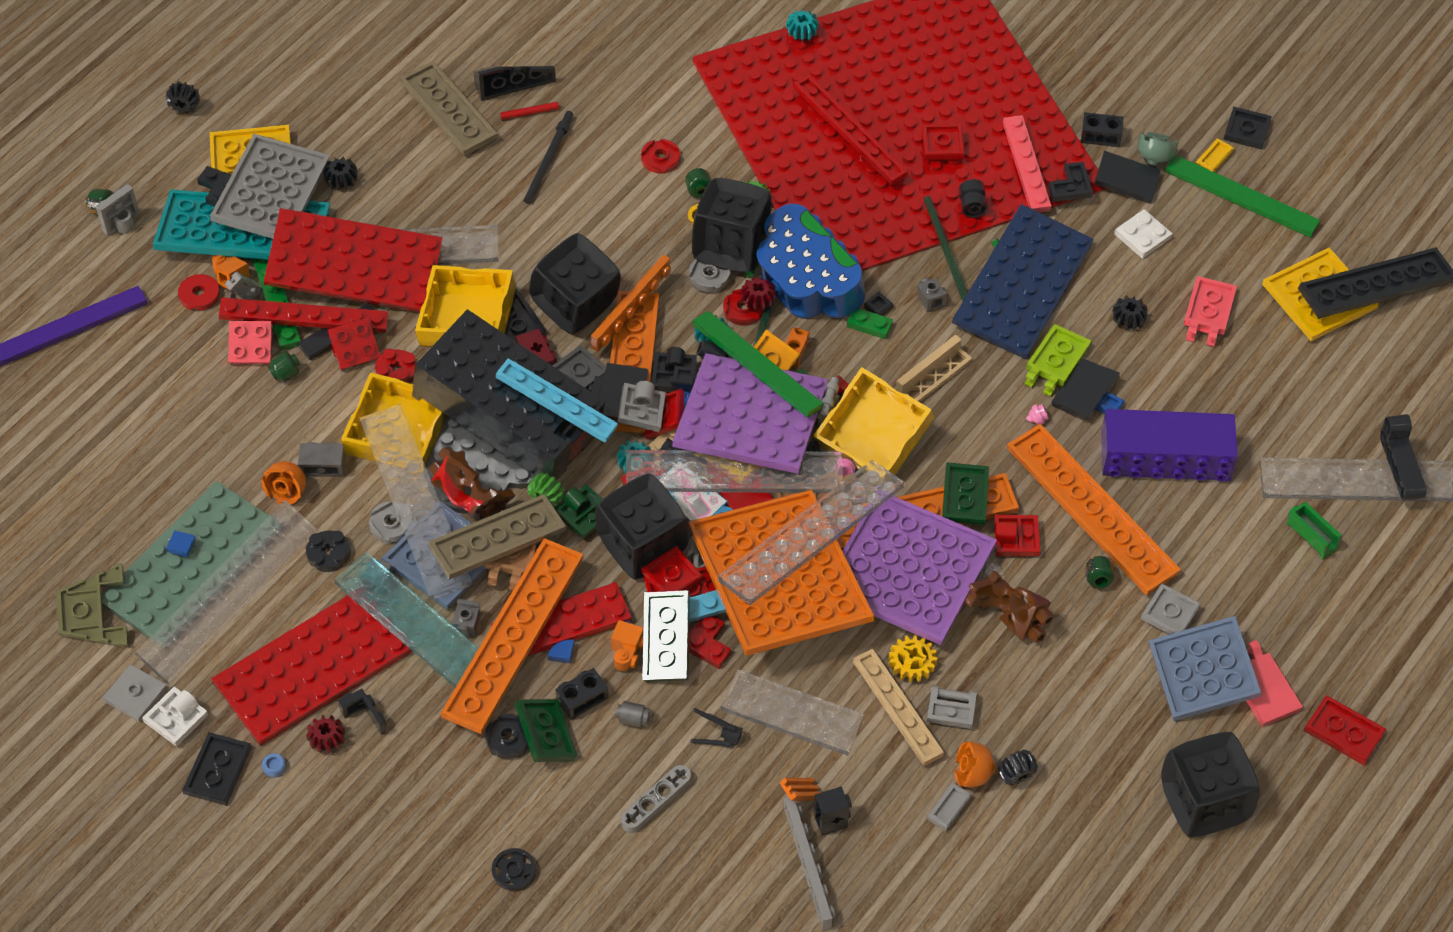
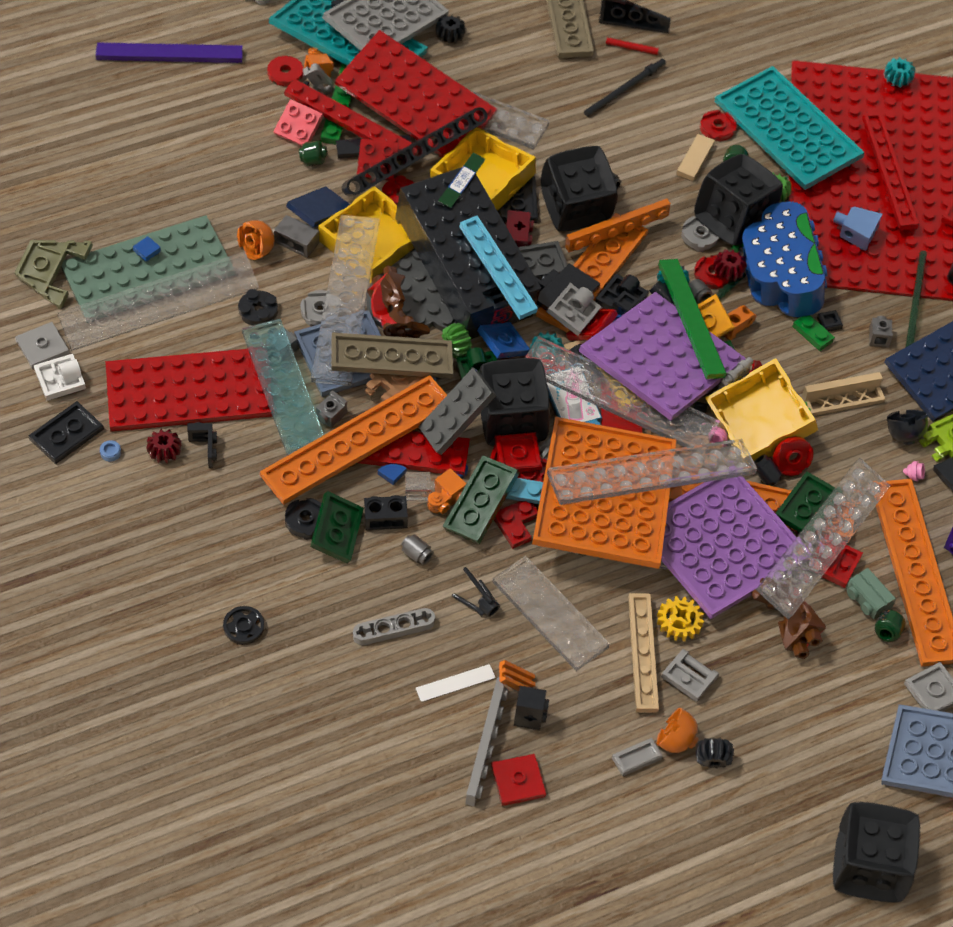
camera: 25 degrees right, 0 degrees up
(326, 419) = (317, 206): none -> dark blue tile
(383, 323) = (407, 154): none -> black beam
(469, 329) = (461, 180): none -> sticker
(590, 469) = (503, 340): none -> blue plate
(597, 561) = (457, 411): none -> dark grey plate
(597, 652) = (418, 486): none -> clear brick
(658, 198) = (695, 157): none -> tan tile
(731, 128) = (789, 127): none -> teal plate
(744, 823) = (455, 682): none -> white sticker
(747, 332) = (700, 290): none -> flat silver brick
(853, 199) = (858, 226): none -> medium blue torso
(857, 883) = (518, 779): none -> red plate
(912, 479) = (767, 470): none -> black brick
(916, 450) = (786, 449): none -> red tile
(1000, 519) = (823, 538): none -> clear plate
(1009, 374) = (908, 426): none -> black cylinder
(1065, 550) = (870, 593): none -> sand green brick

